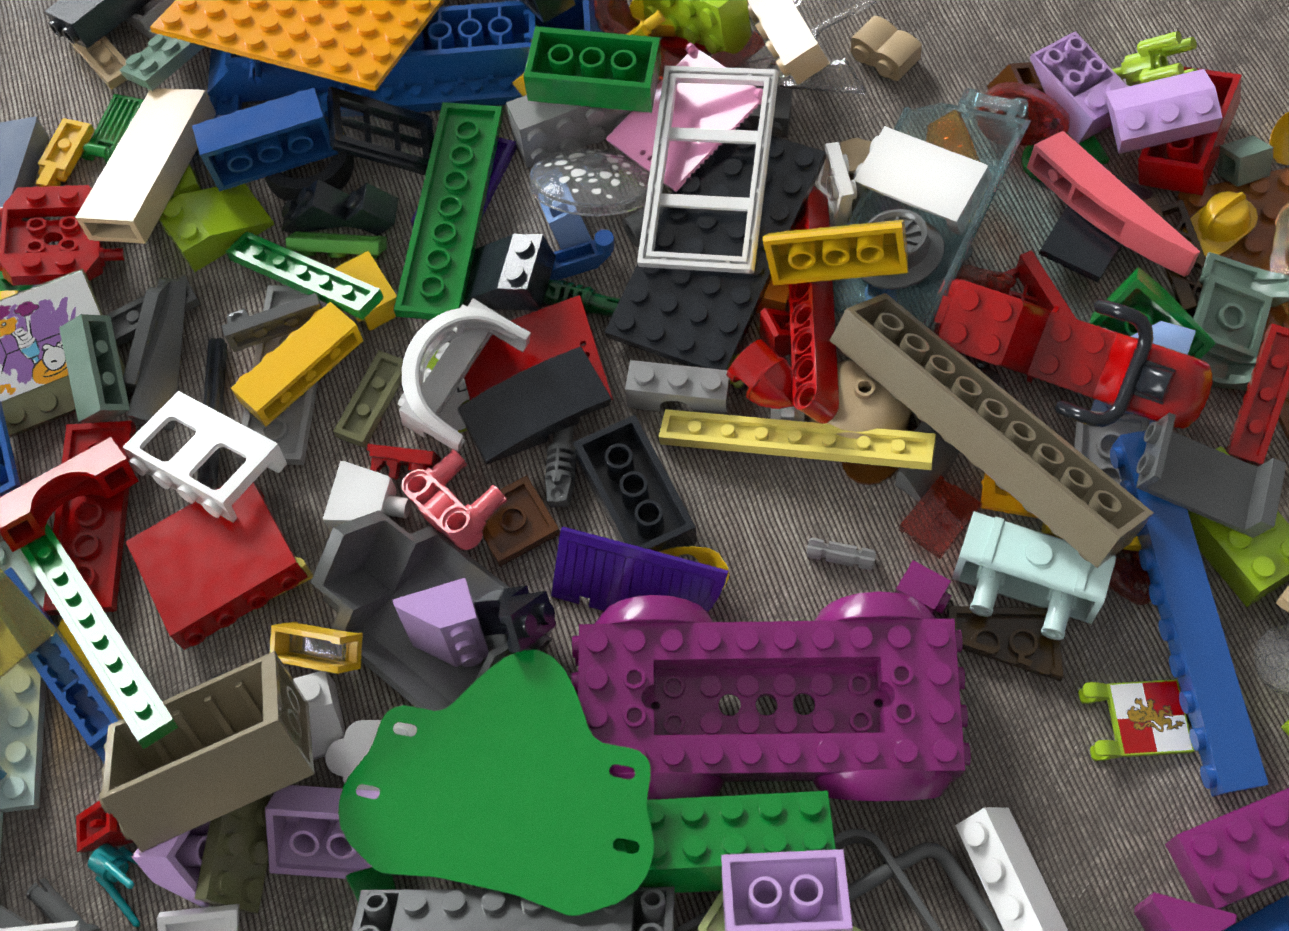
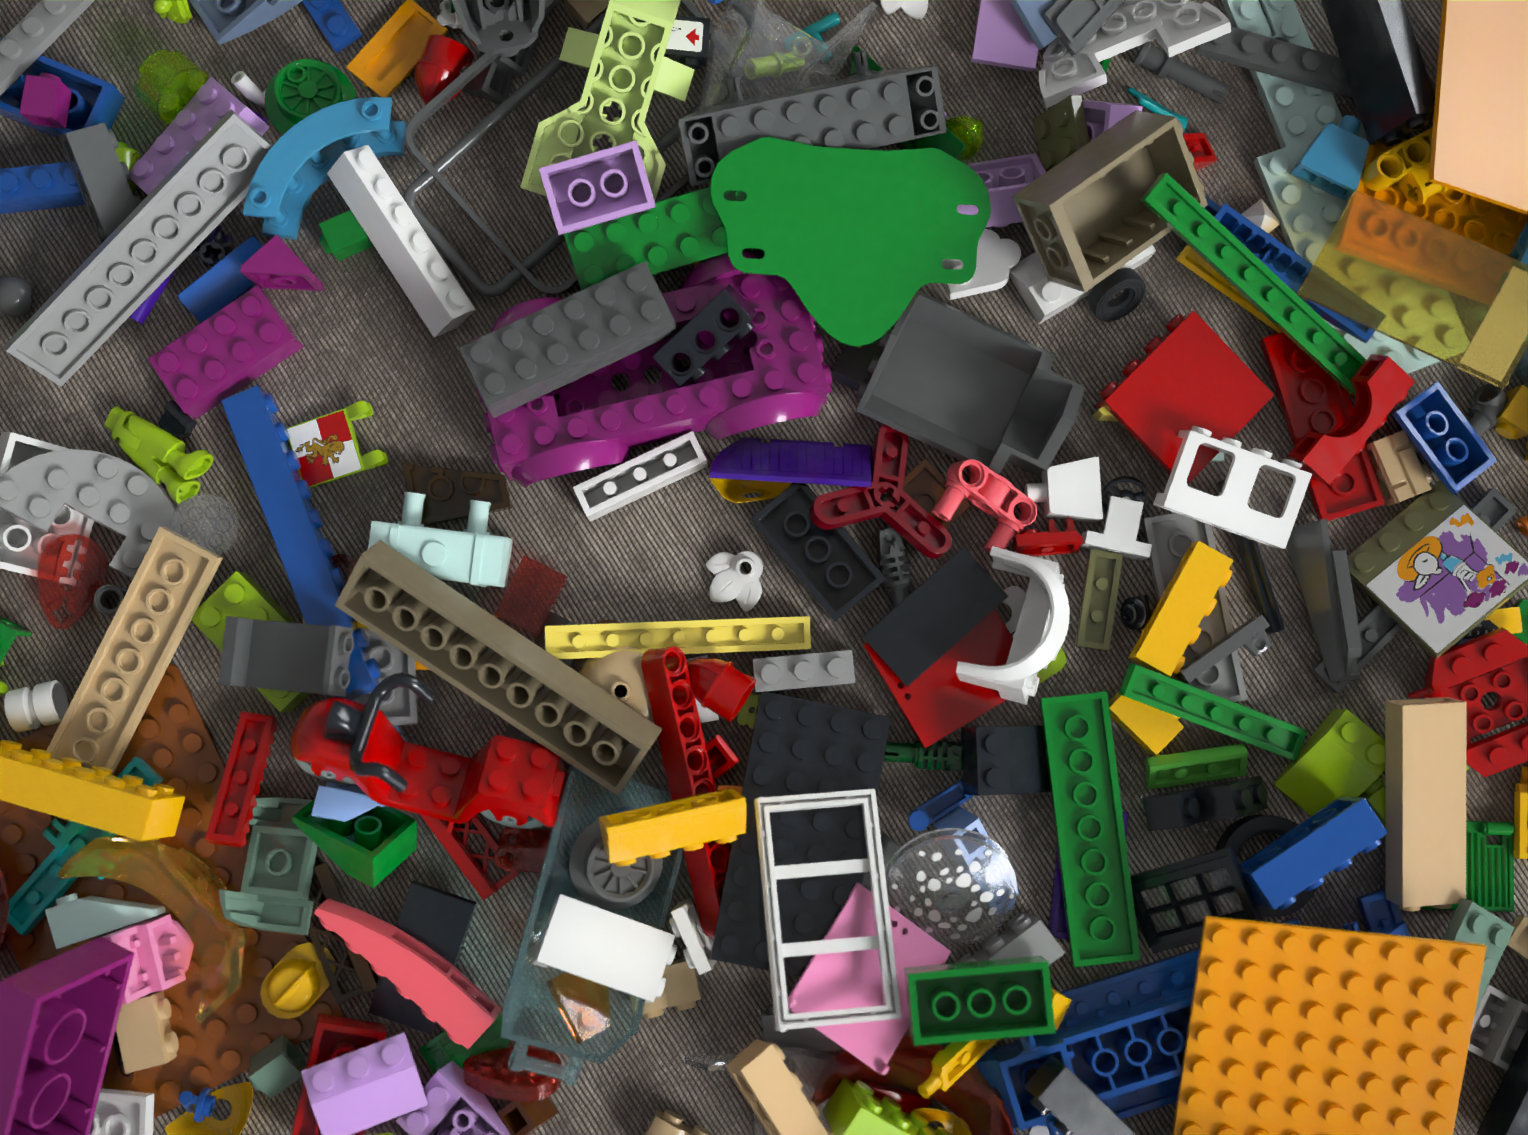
camera: 155 degrees right, 20 degrees up
(37, 447) = (1398, 468): none -> tan brick
(61, 739) = (1262, 216): none -> white slope
(94, 368) = (1377, 552): sand green brick -> none
(316, 647) = (1061, 334): yellow window -> none
(322, 457) = (1121, 522): none -> white piece
(337, 905) = (969, 131): none -> clear neon green brick
(340, 382) = (1135, 612): none -> black plate
(444, 623) = (946, 368): lavender slope -> none
(517, 614) = (879, 386): black arch -> none
(533, 499) = (863, 503): none -> dark red piece
(697, 706) = (710, 319): none -> black brick
(726, 489) = (732, 581): none -> white plate
(798, 598) = (640, 476): none -> white brick
(841, 553) = (615, 541): light grey axle -> none
(854, 725) = (568, 339): none -> dark grey brick
(926, 587) = (535, 516): magenta brick -> none

